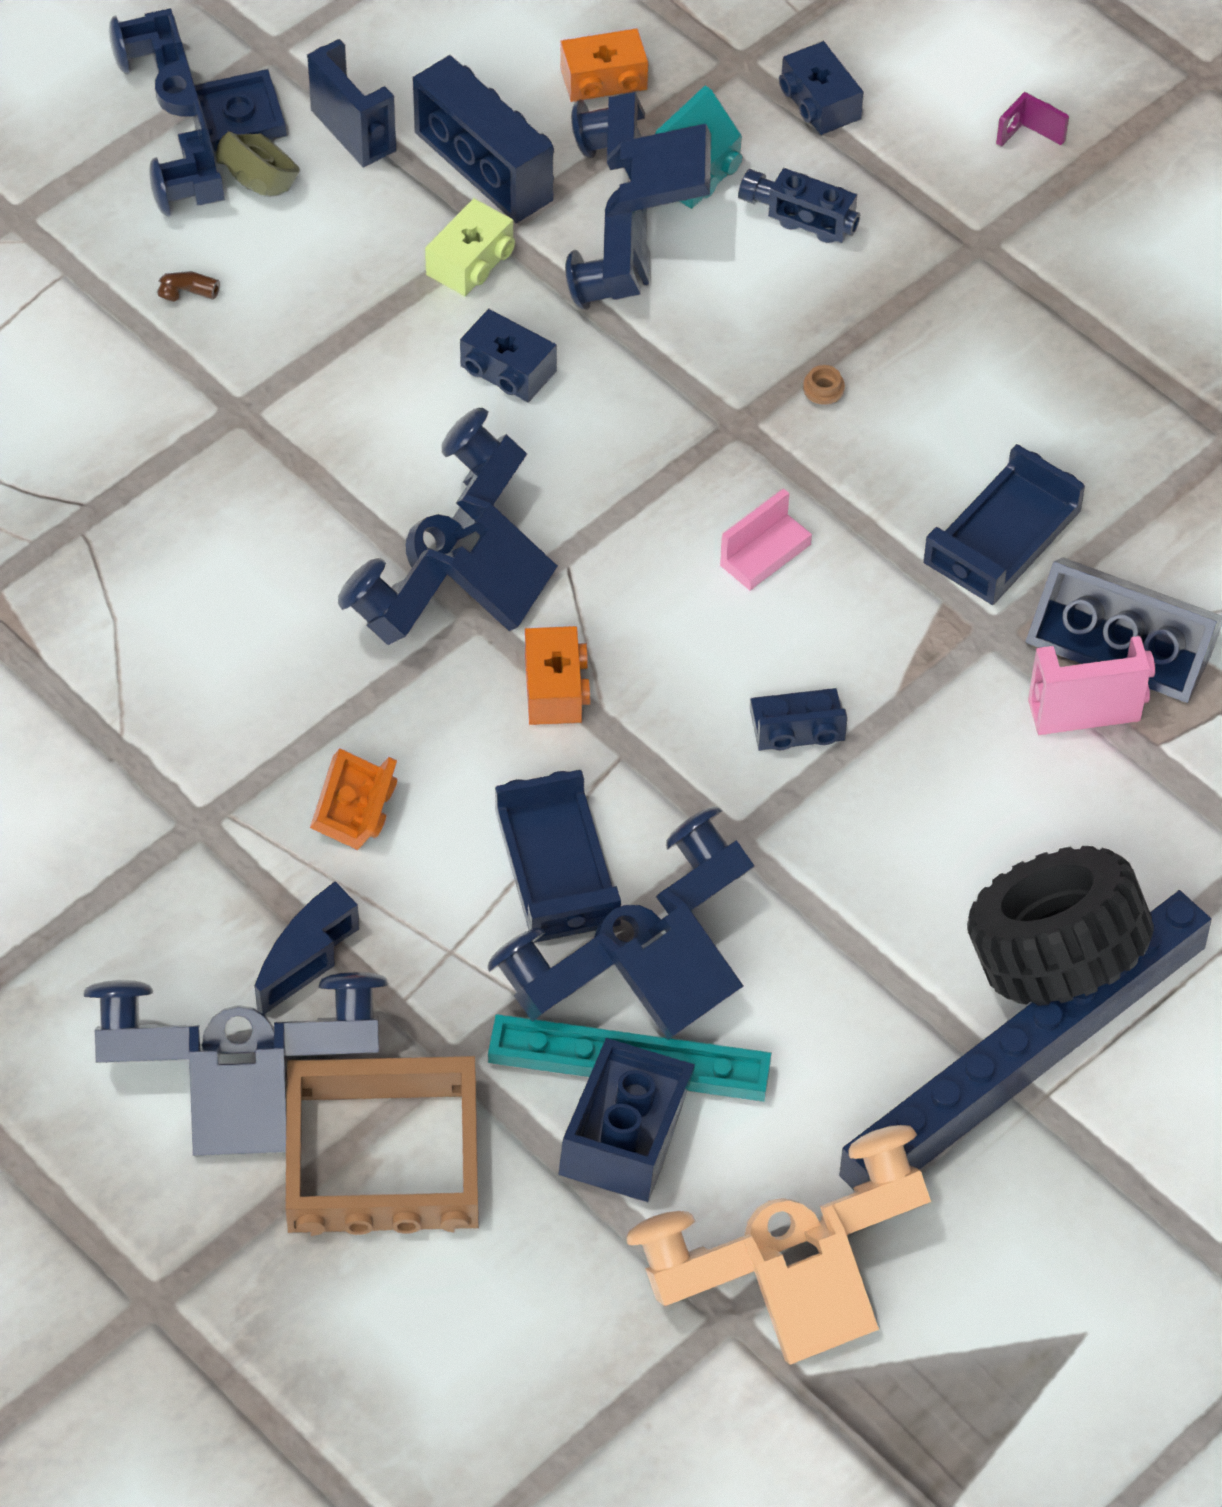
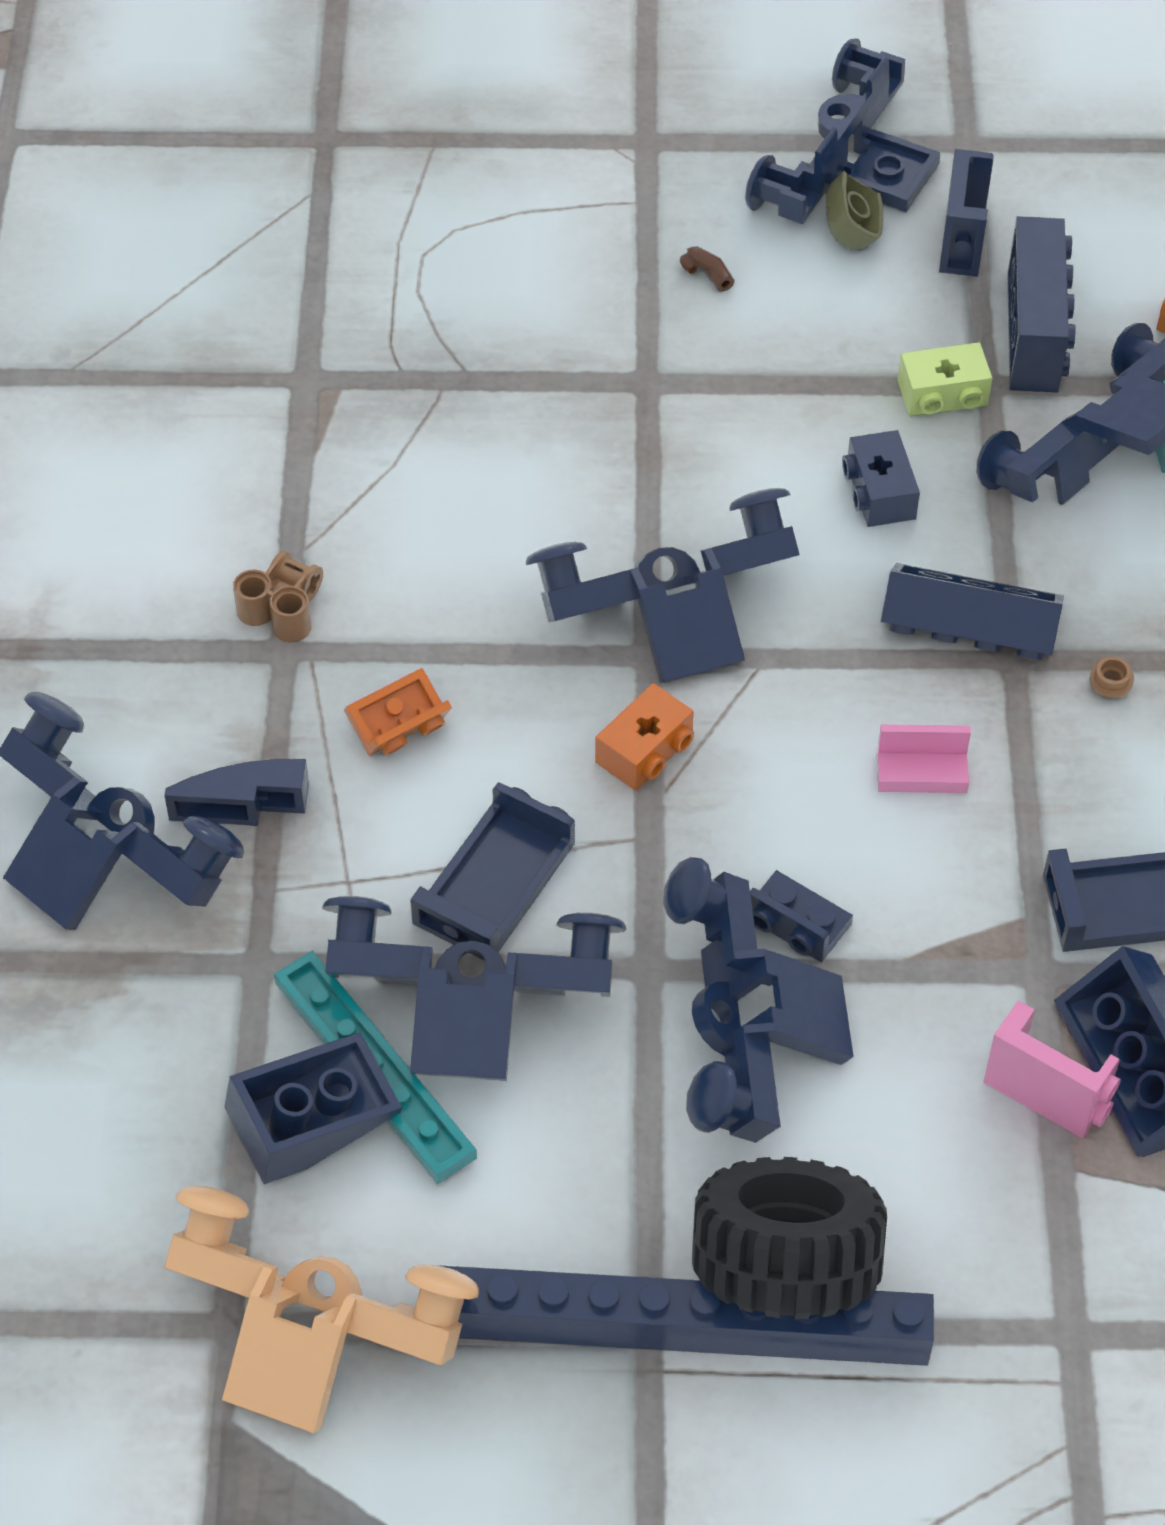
camera: 45 degrees right, 0 degrees up
(156, 780) = (278, 596): none -> medium nougat piece
(378, 1080) = (132, 1074): medium nougat window -> none
(680, 406) = (972, 610): none -> dark blue slope
(898, 855) = (806, 1015): none -> dark blue piece

